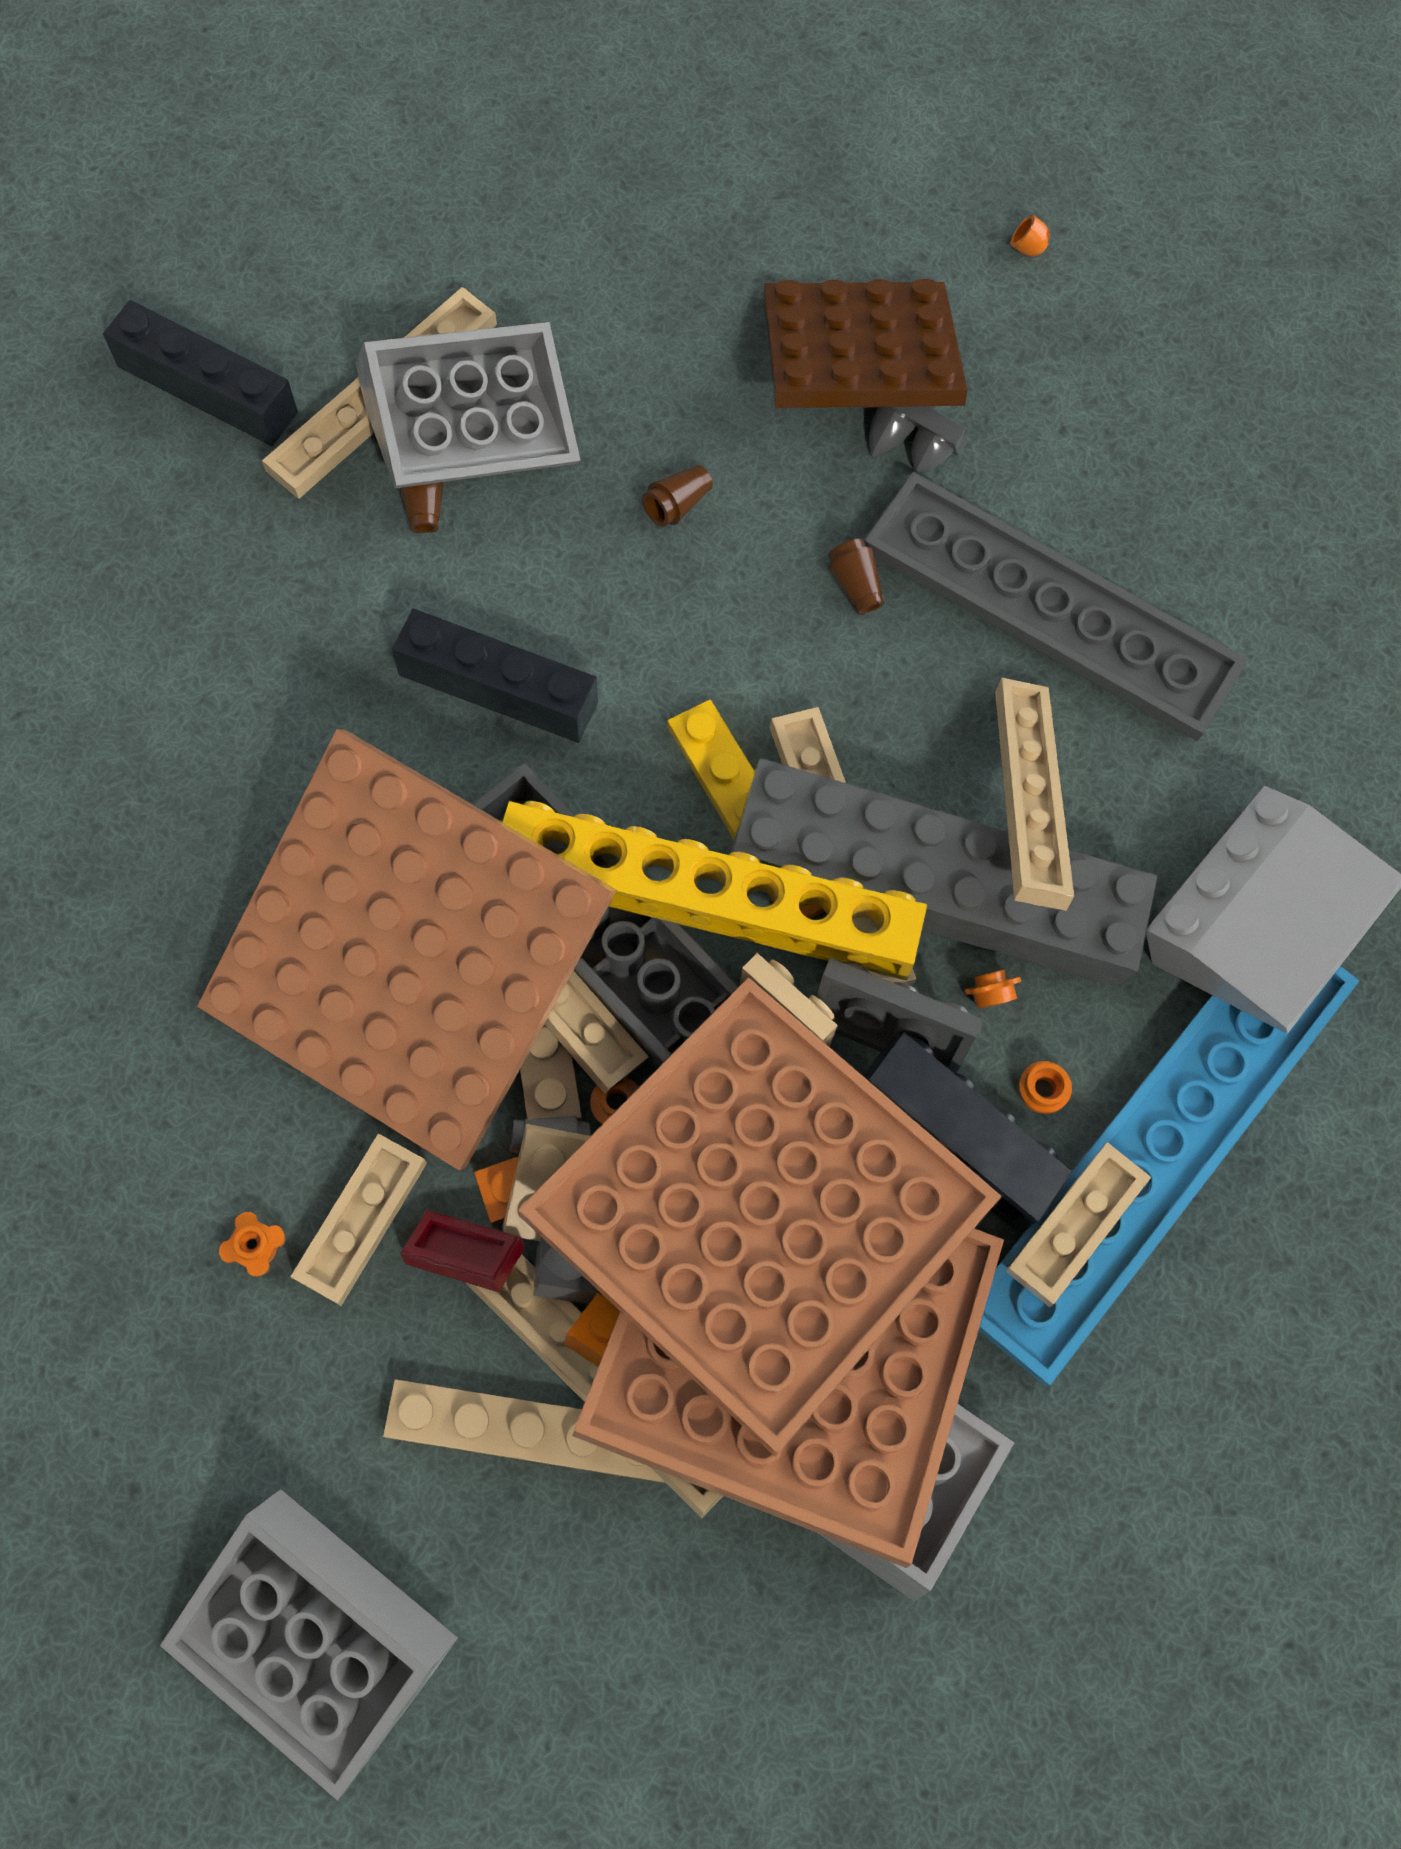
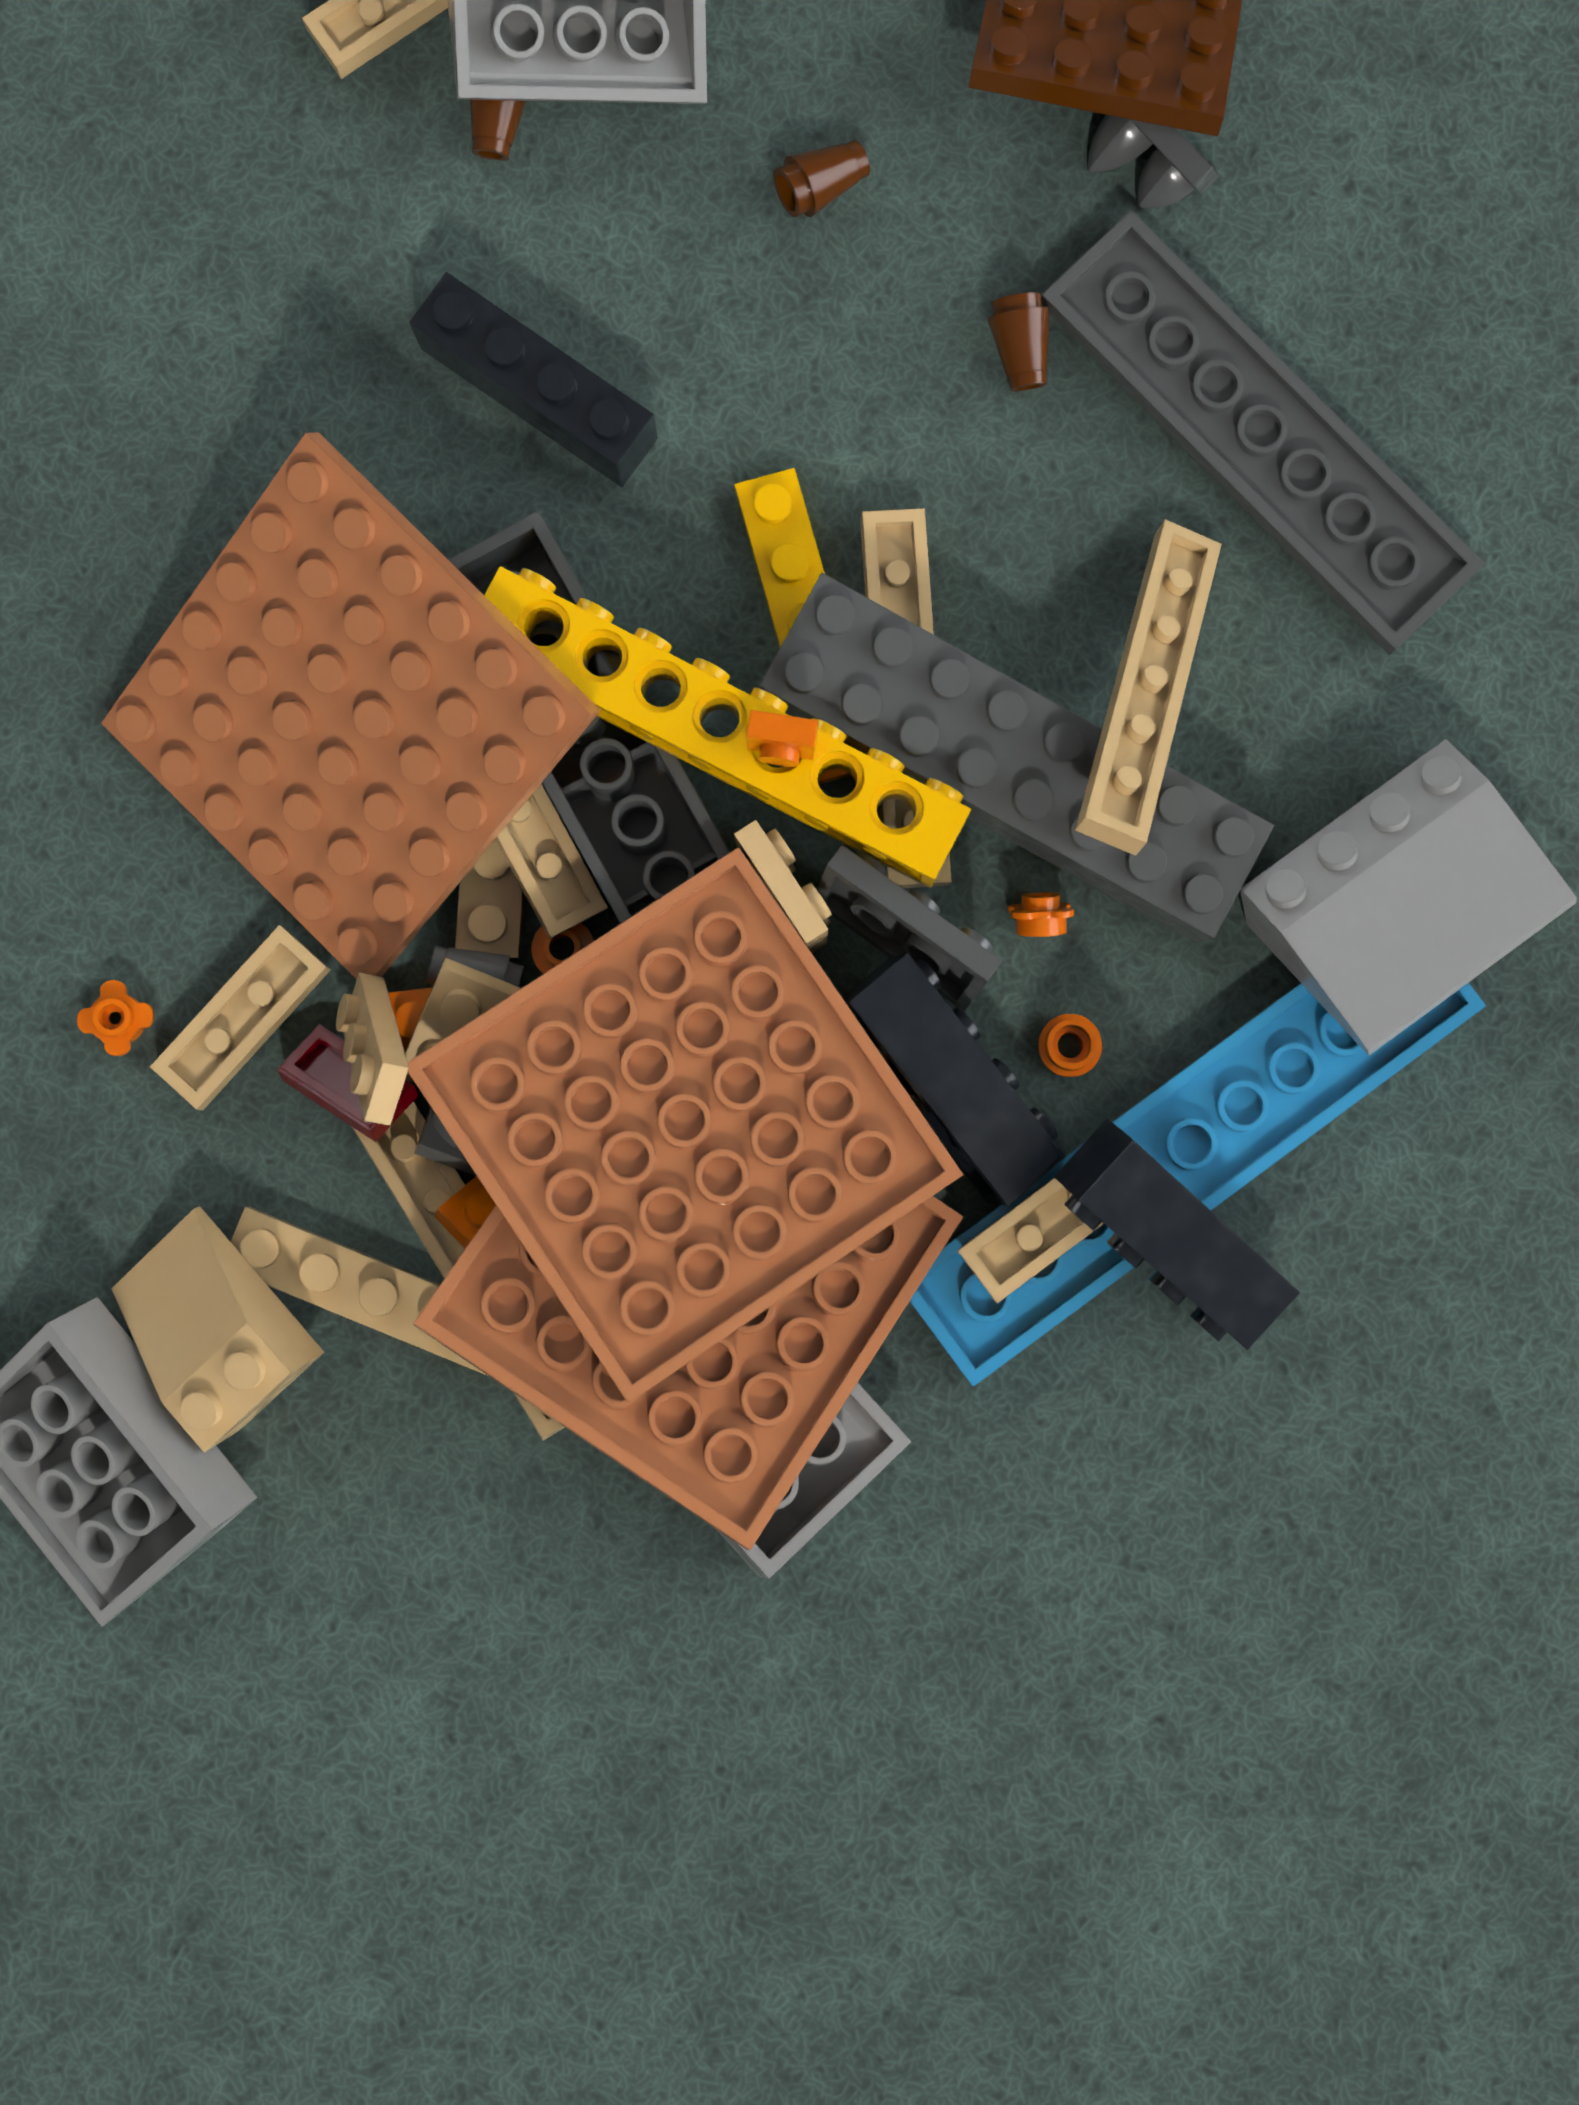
camera: 20 degrees right, 15 degrees up
(387, 1494) = (210, 1331): none -> tan slope
(484, 1209) = (372, 1048): none -> tan plate
(767, 877) = (781, 738): none -> orange plate
(1183, 1211) = (1176, 1234): none -> black brick

